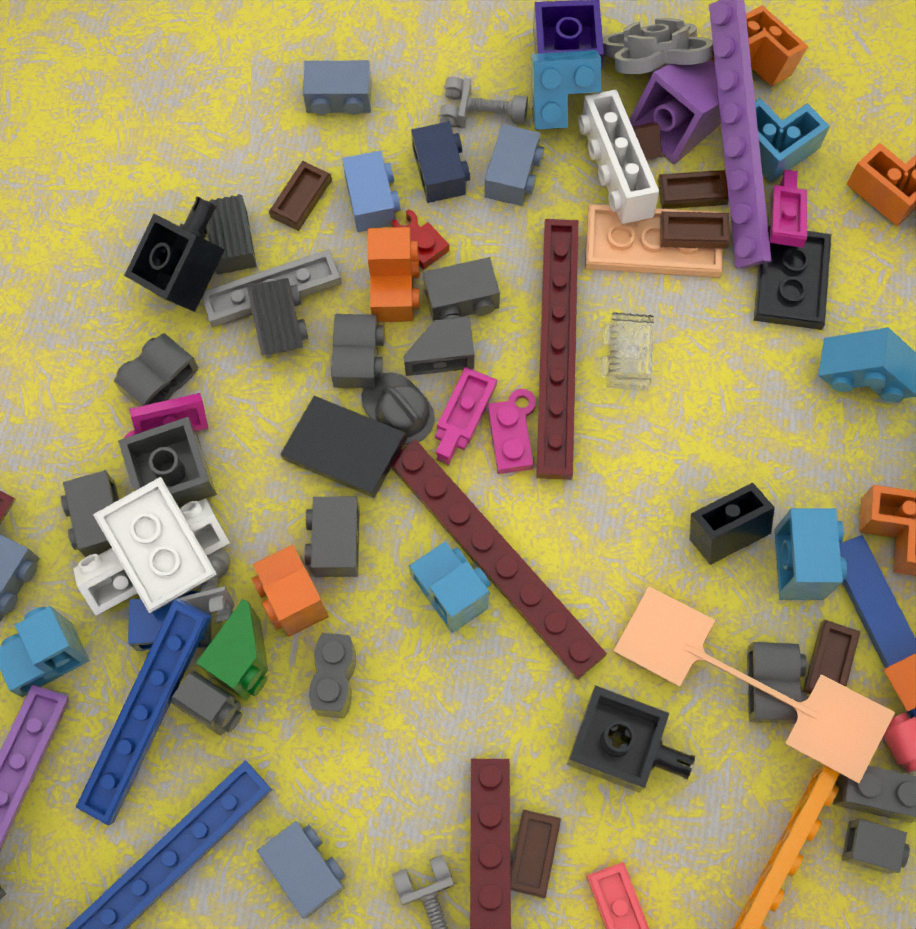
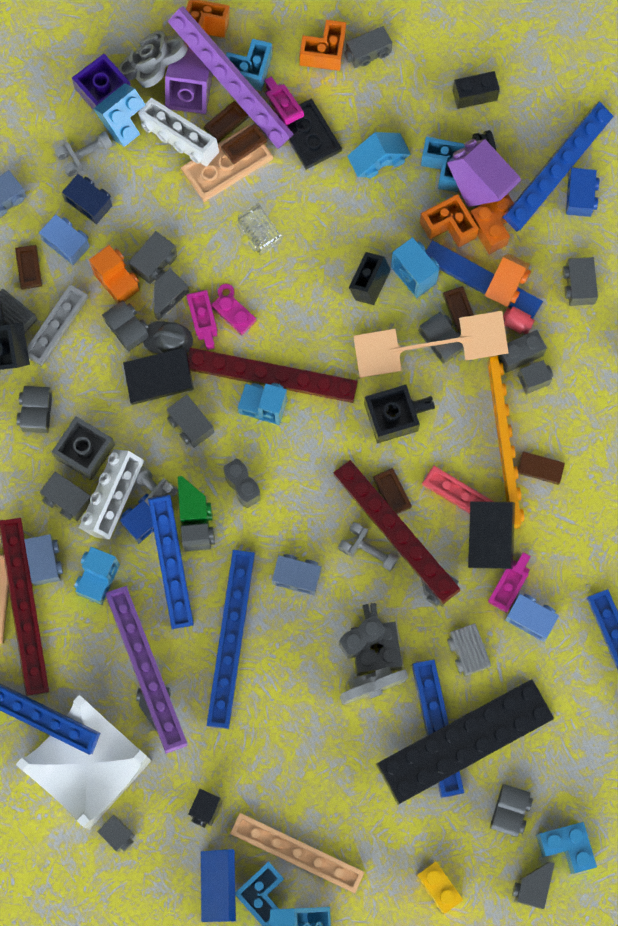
camera: 40 degrees left, 5 degrees up
(155, 545) = (114, 484): white tile -> none
(168, 411) = (60, 424): dark pink hinge -> none
(276, 317) = (74, 337): dark grey brick -> none
(290, 592) = (190, 460): orange brick -> none
(430, 243) = (114, 241): red plate -> none
(512, 165) = (126, 173): sand blue brick -> none
(557, 350) = (222, 252): dark red plate -> none
(649, 139) = (185, 111): reddish brown tile -> none

